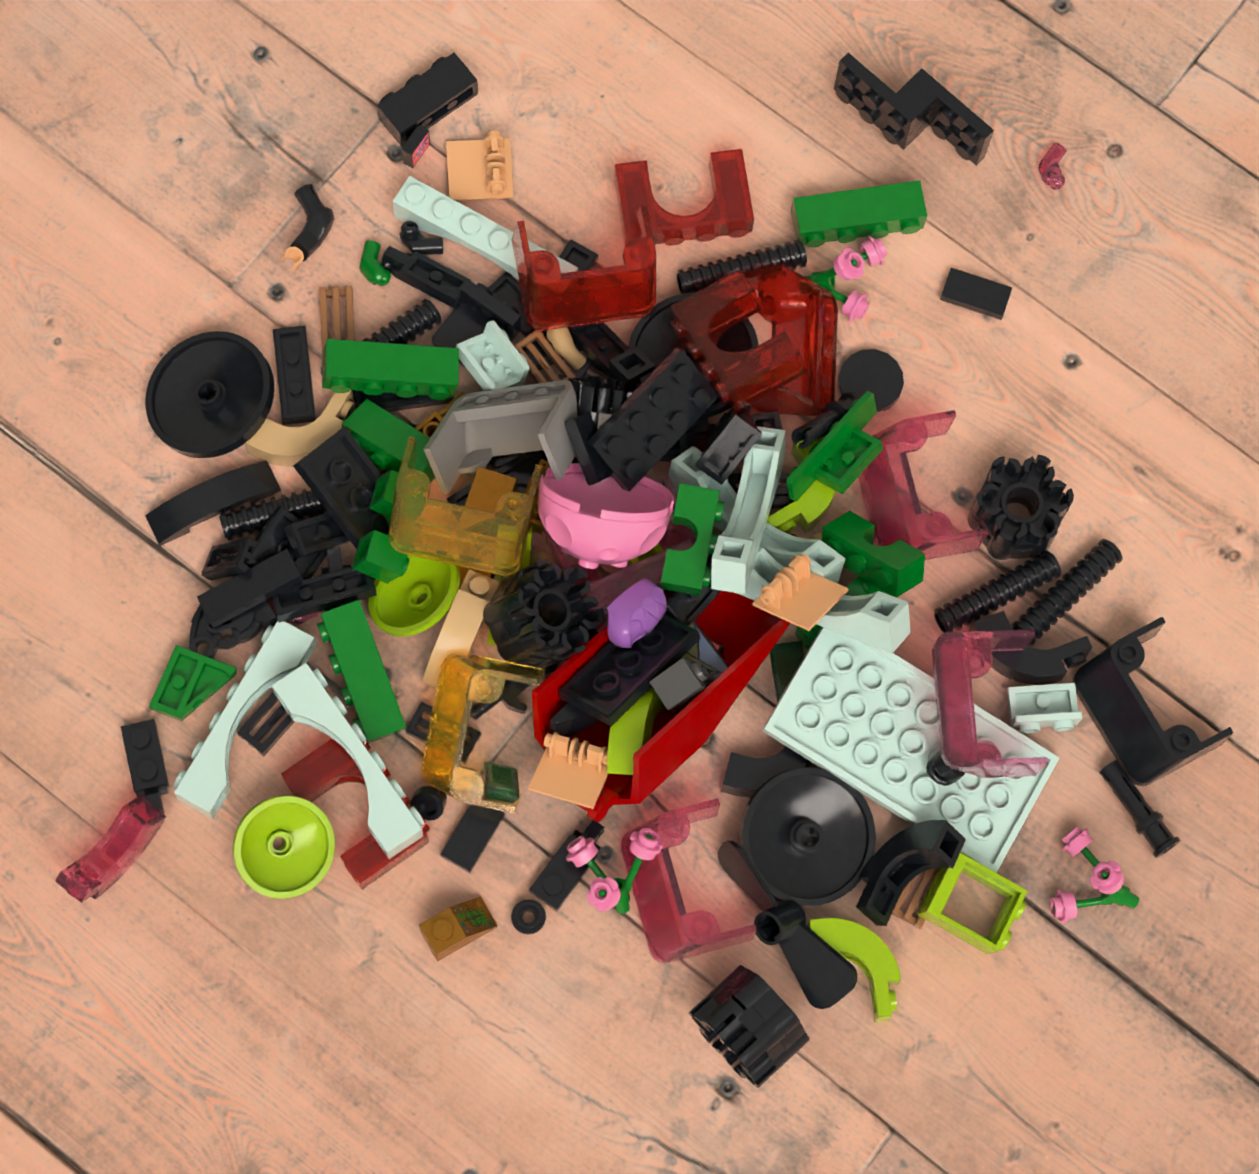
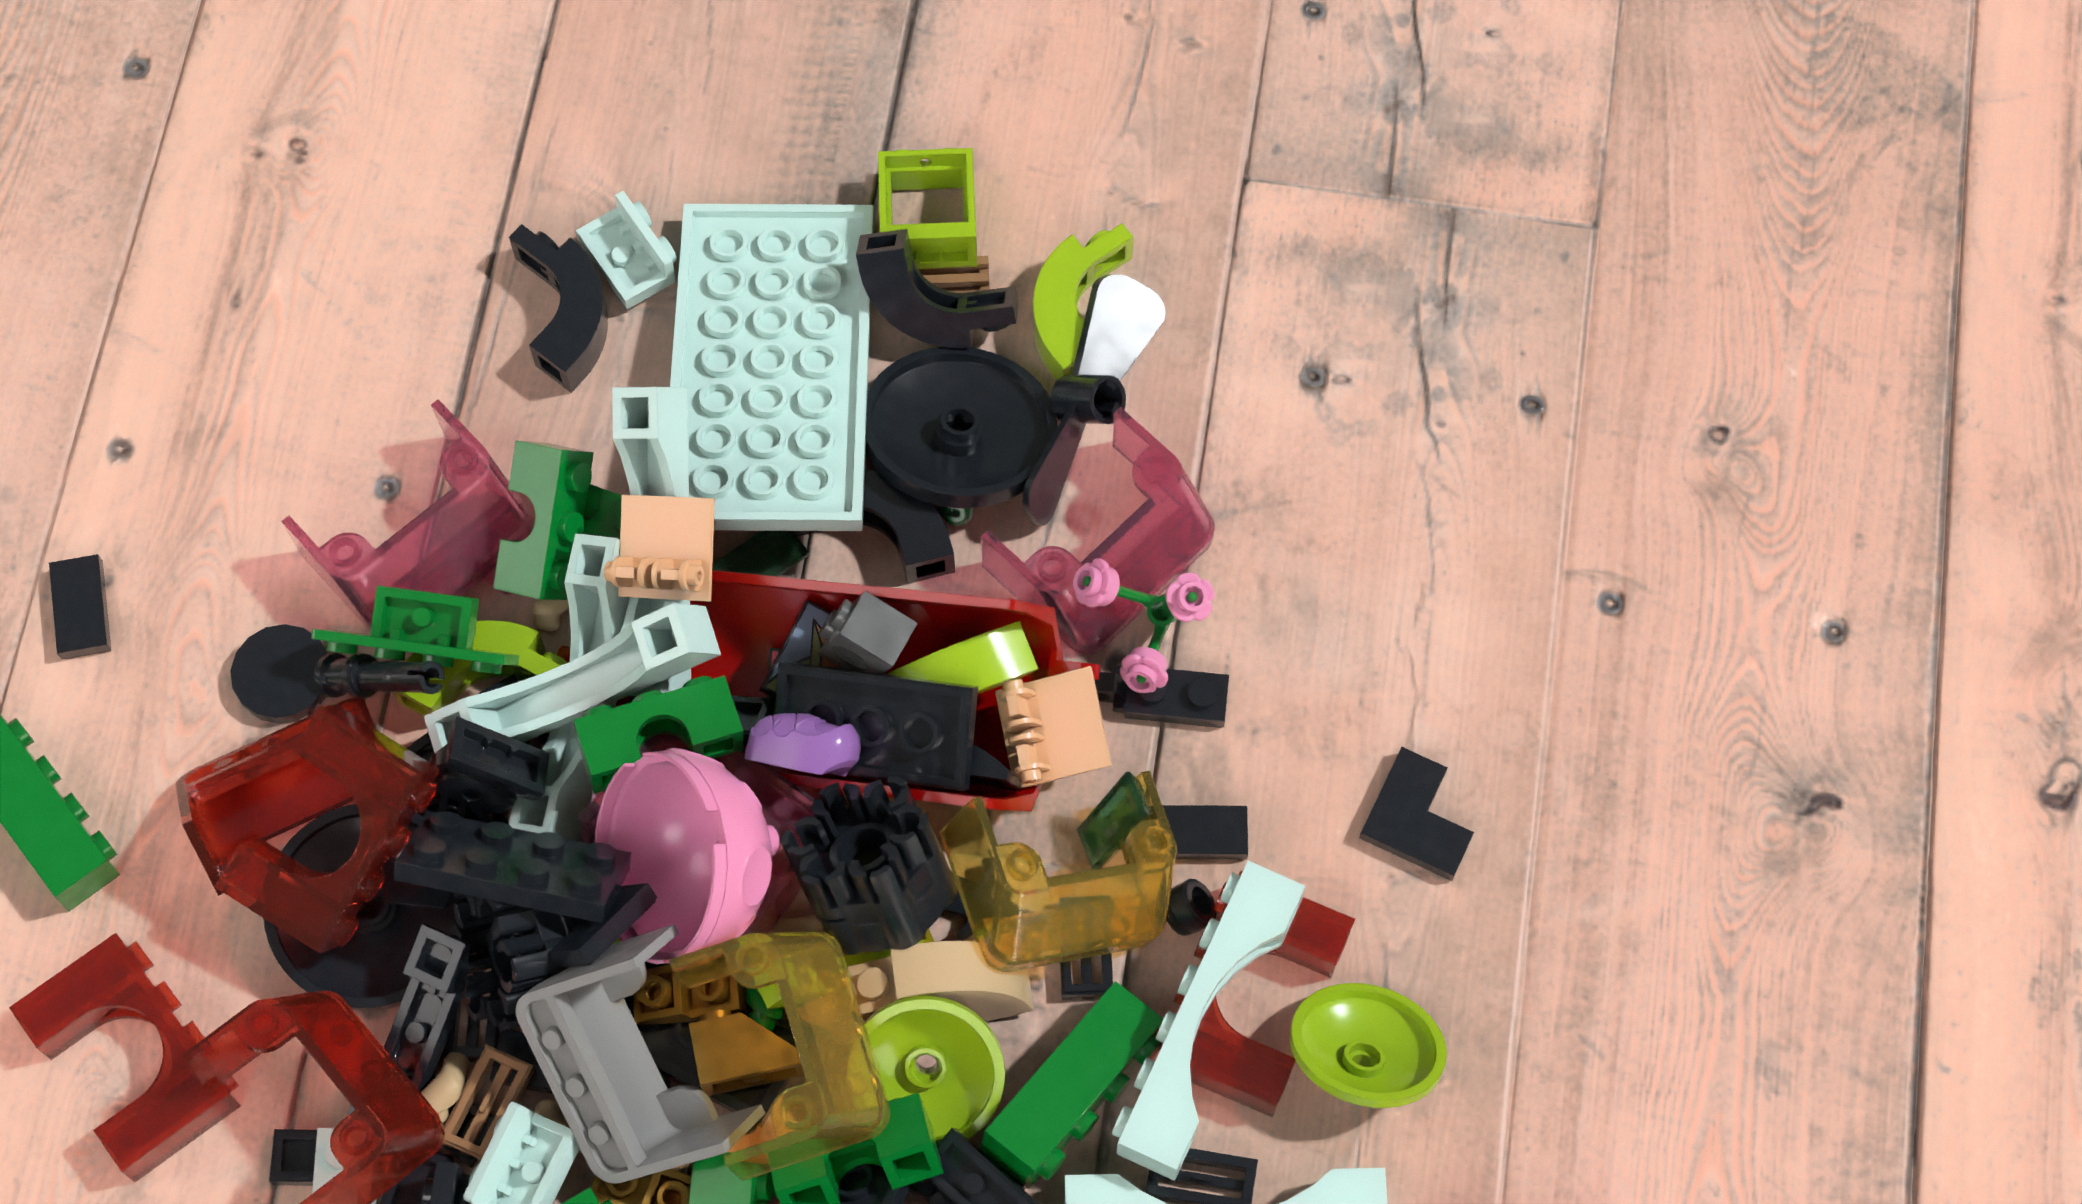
camera: 115 degrees left, 5 degrees down
(407, 959) = (1404, 824): none -> black tile
(457, 927) = (1328, 779): pearl gold slope -> none
(528, 906) = (1260, 692): black plate -> none
(698, 279) = (197, 921): black piece -> none
(750, 1024) = (1238, 362): black piece -> none
(850, 266) = (134, 754): bright pink plant -> none
(947, 774) = (777, 299): black tile -> none
(955, 661) = (740, 282): clear pink windscreen -> none
(997, 592) = (503, 374): black piece -> none
(1023, 484) = (364, 362): black piece -> none
(1069, 589) = (455, 296): black piece -> none
(1105, 878) = (816, 72): bright pink plant -> none
(1126, 719) = (584, 158): black windscreen -> none
(1147, 821) = (706, 77): black pin -> none

